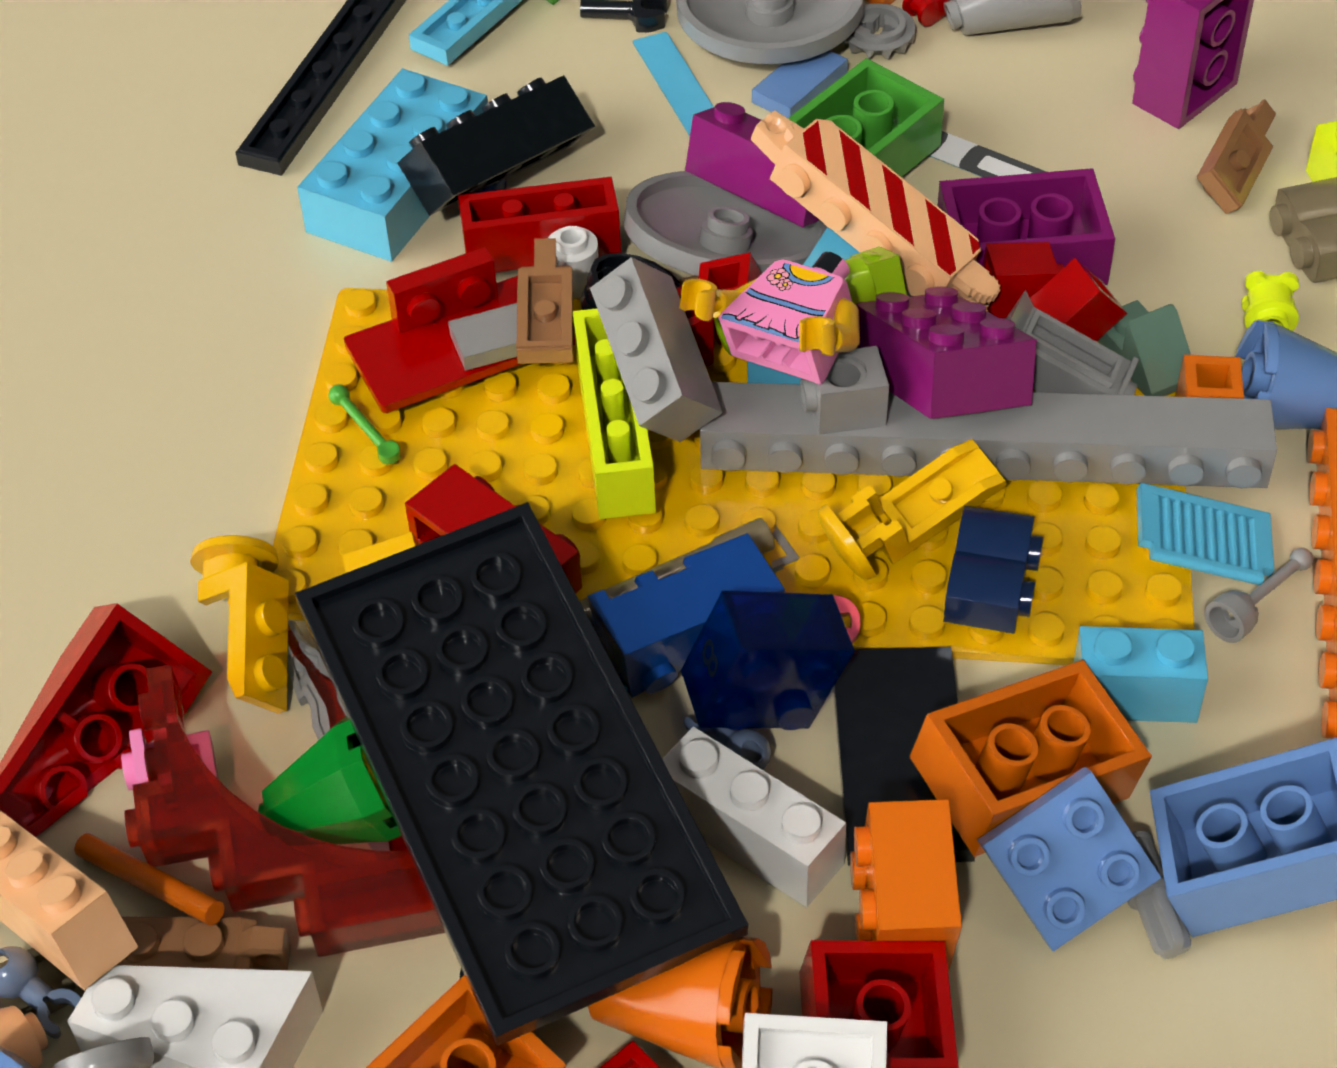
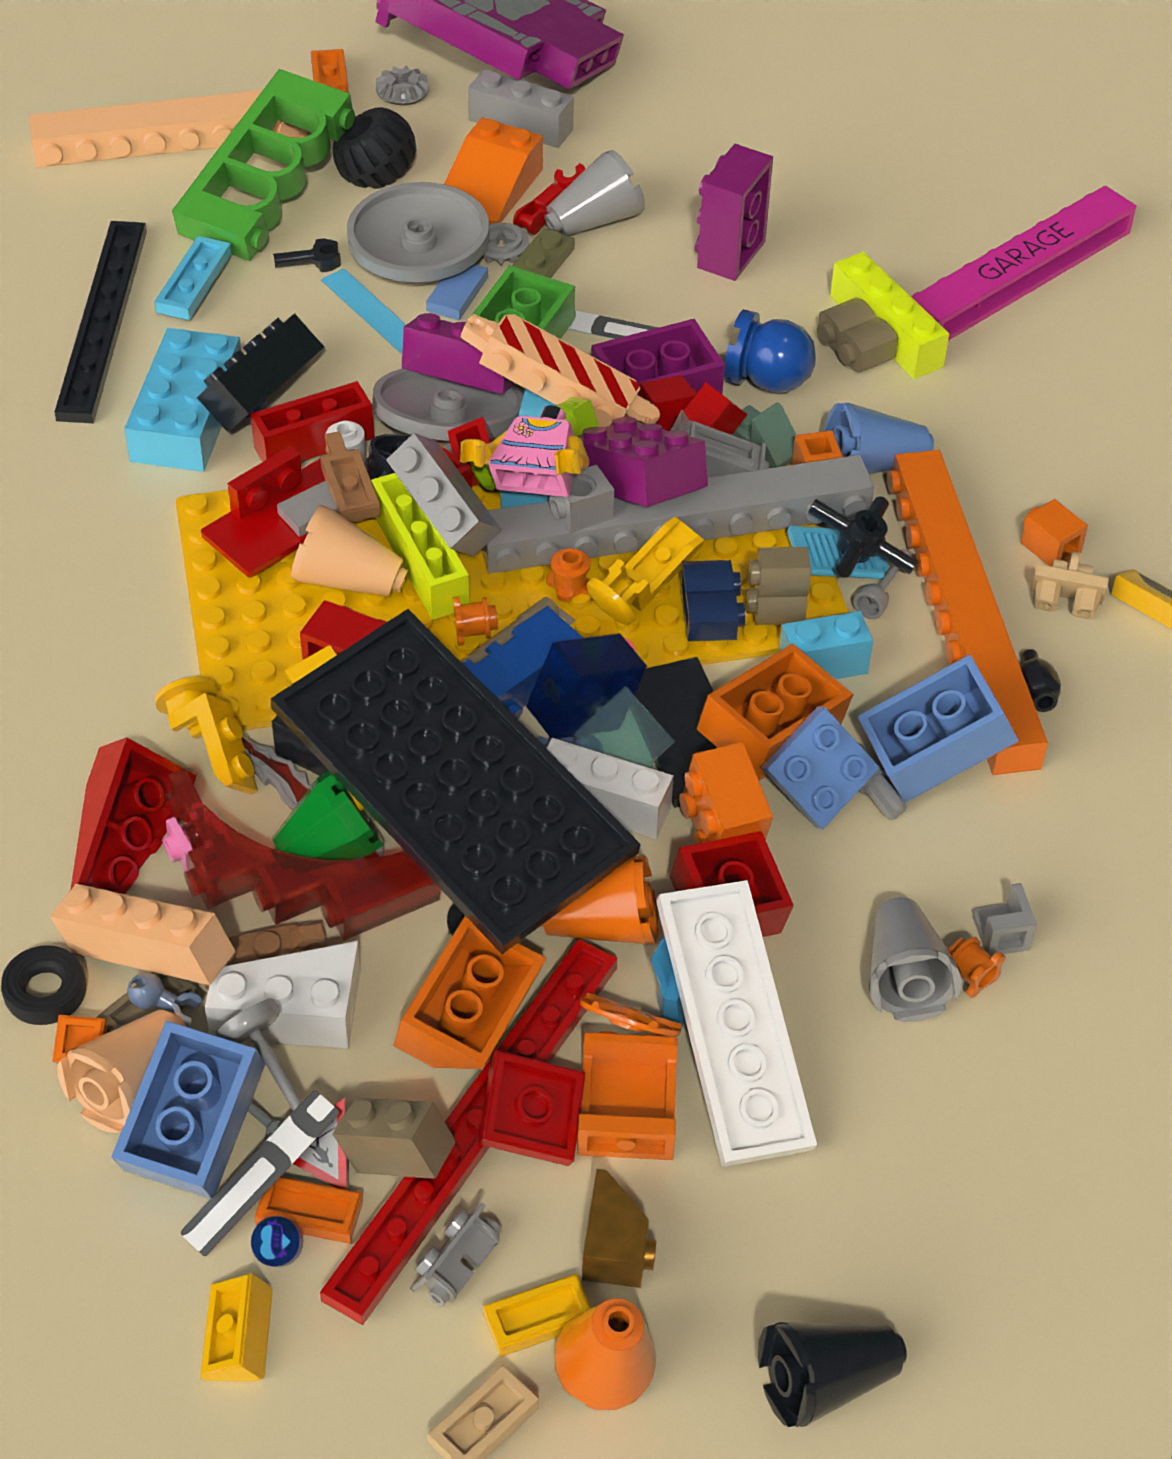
camera: 20 degrees left, 0 degrees up
(149, 879) = (232, 917): orange bar -> none
(387, 450) = (262, 603): bright green hinge -> none
(507, 409) = (346, 557): none -> light nougat cone
(651, 530) = (474, 619): none -> orange brick
(801, 741) = (625, 731): none -> clear light blue piece
(805, 490) = (569, 573): none -> orange brick
(931, 54) = (546, 253): none -> olive plate
(1092, 568) = (780, 585): none -> dark tan brick
(1190, 236) = (772, 354): none -> blue tile
(1238, 156) = (784, 289): medium nougat hinge -> none
(1242, 519) = (862, 536): none -> black bar
(1271, 299) = (835, 388): neon yellow brick -> none

